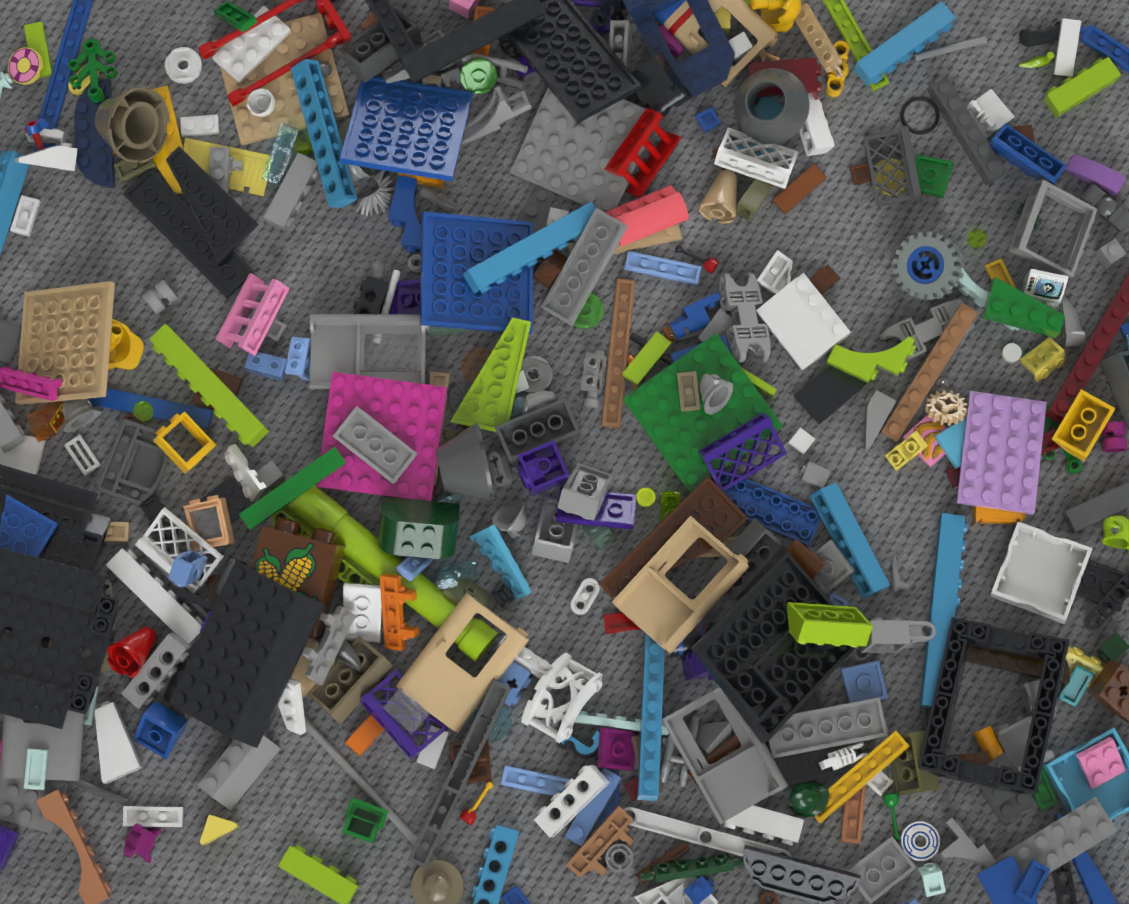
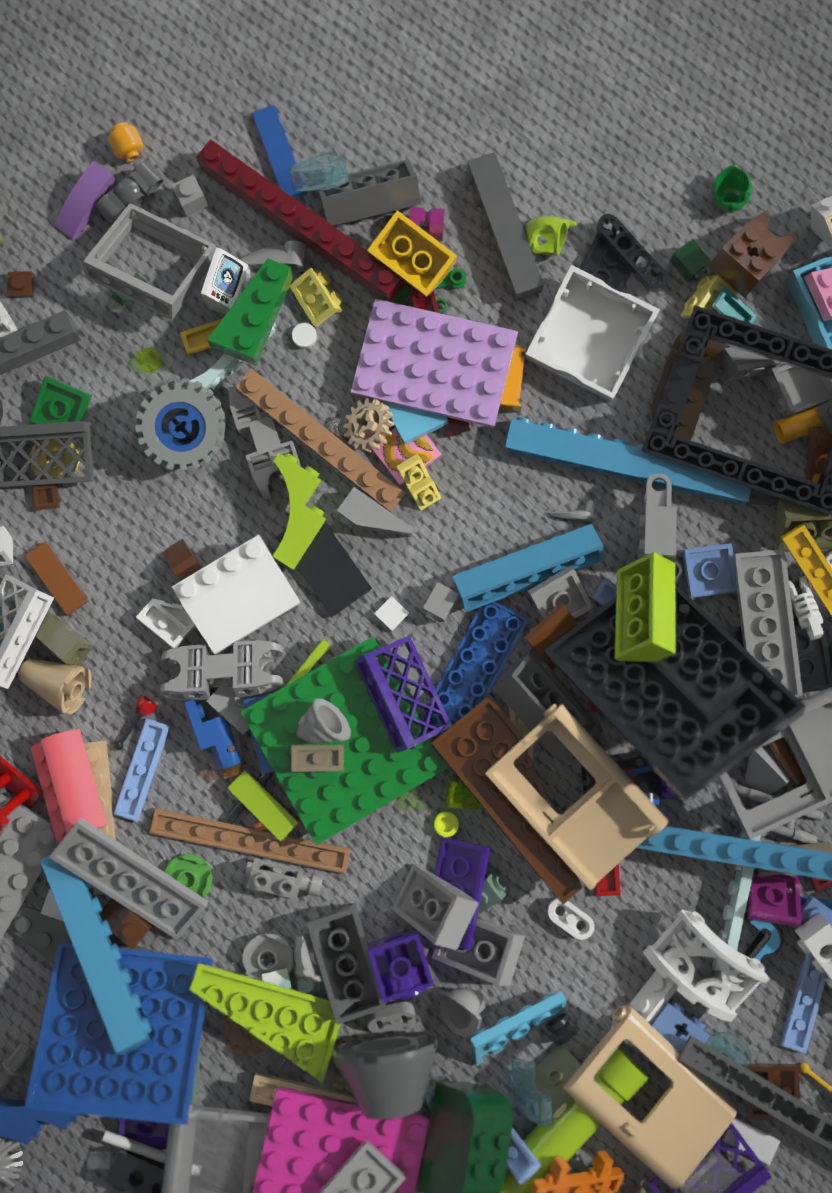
camera: 85 degrees left, 5 degrees up
(1026, 155) = (48, 281): blue slope -> none

